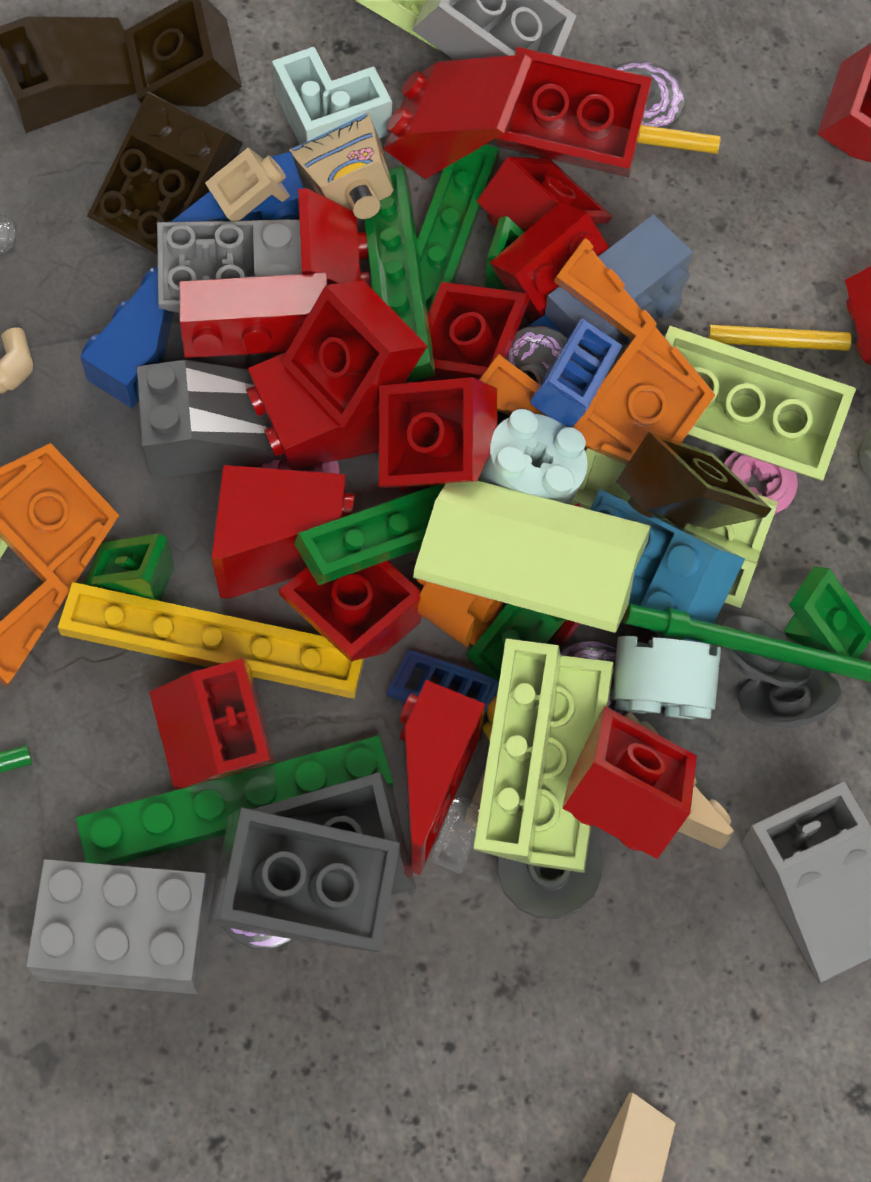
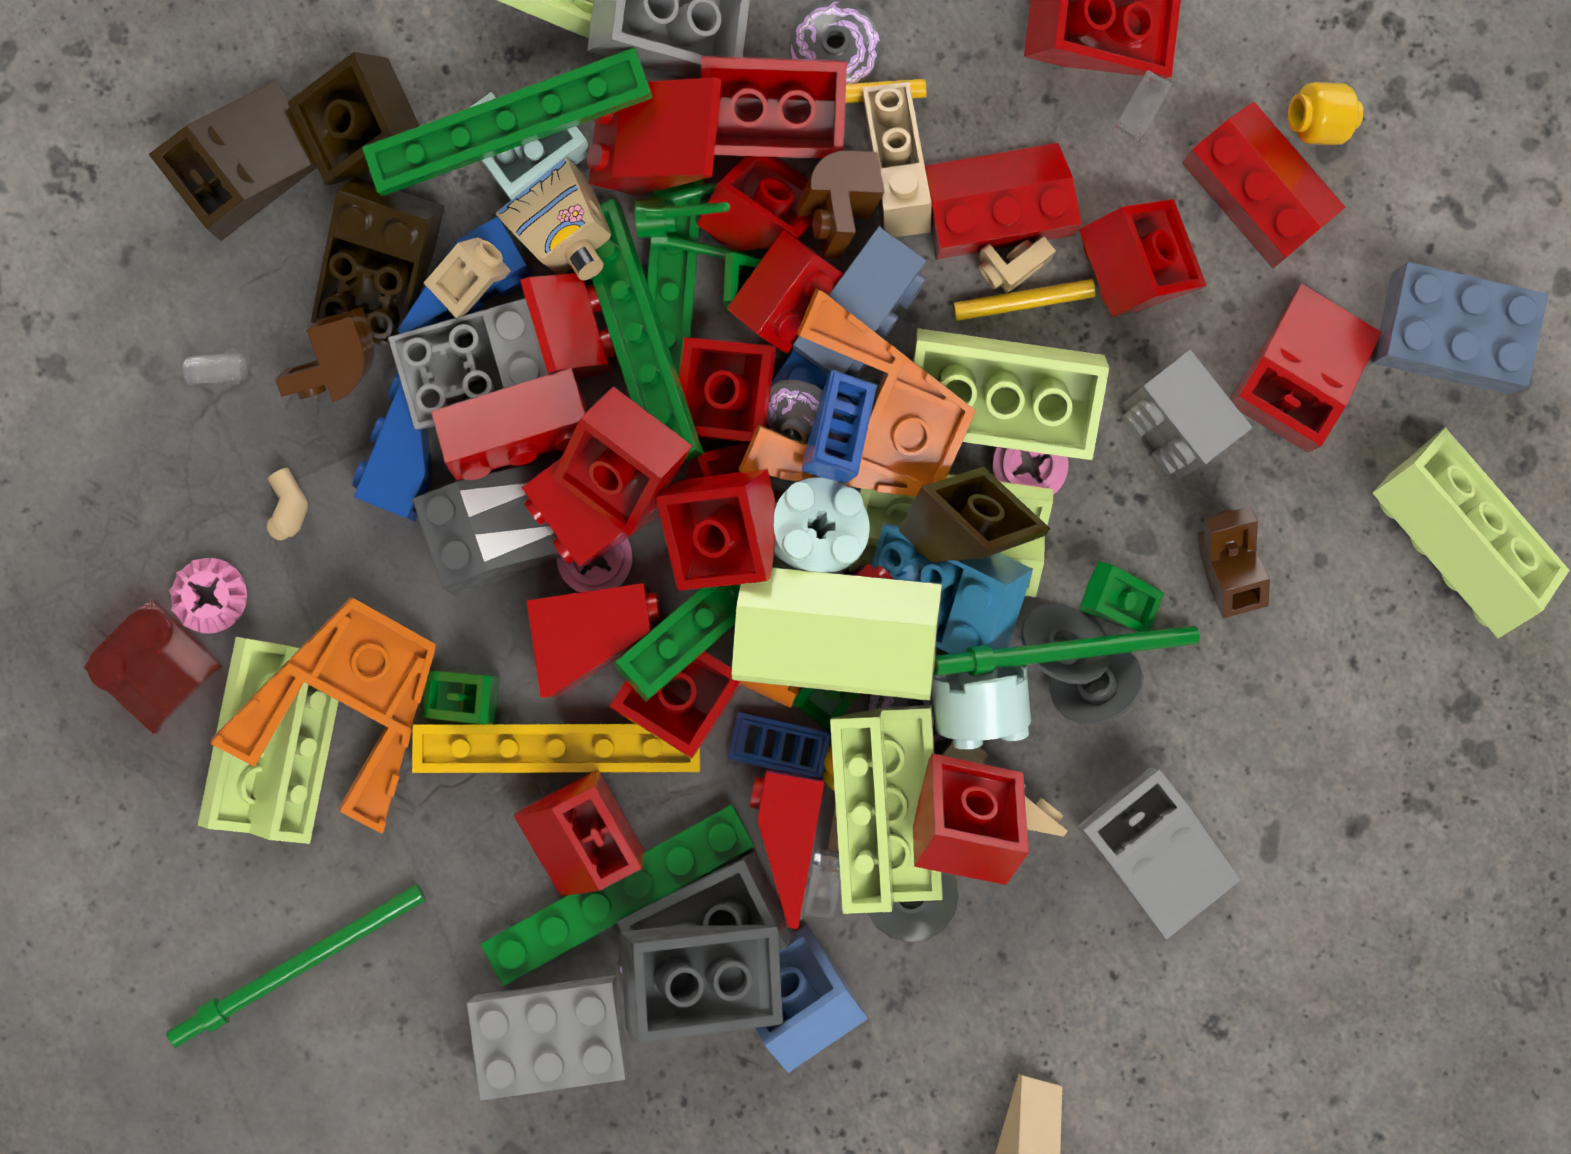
camera: 10 degrees left, 20 degrees up
(108, 242) = (343, 358): none -> reddish brown brick
(322, 64) = (507, 122): none -> green plate
(417, 960) = (814, 1004): none -> medium blue slope
(443, 182) = (659, 216): none -> green plant
(621, 193) = (838, 190): none -> reddish brown brick
(682, 185) = (895, 138): none -> tan slope
(772, 251) = (1001, 200): none -> red slope
(781, 304) = (1024, 262): none -> tan bracket

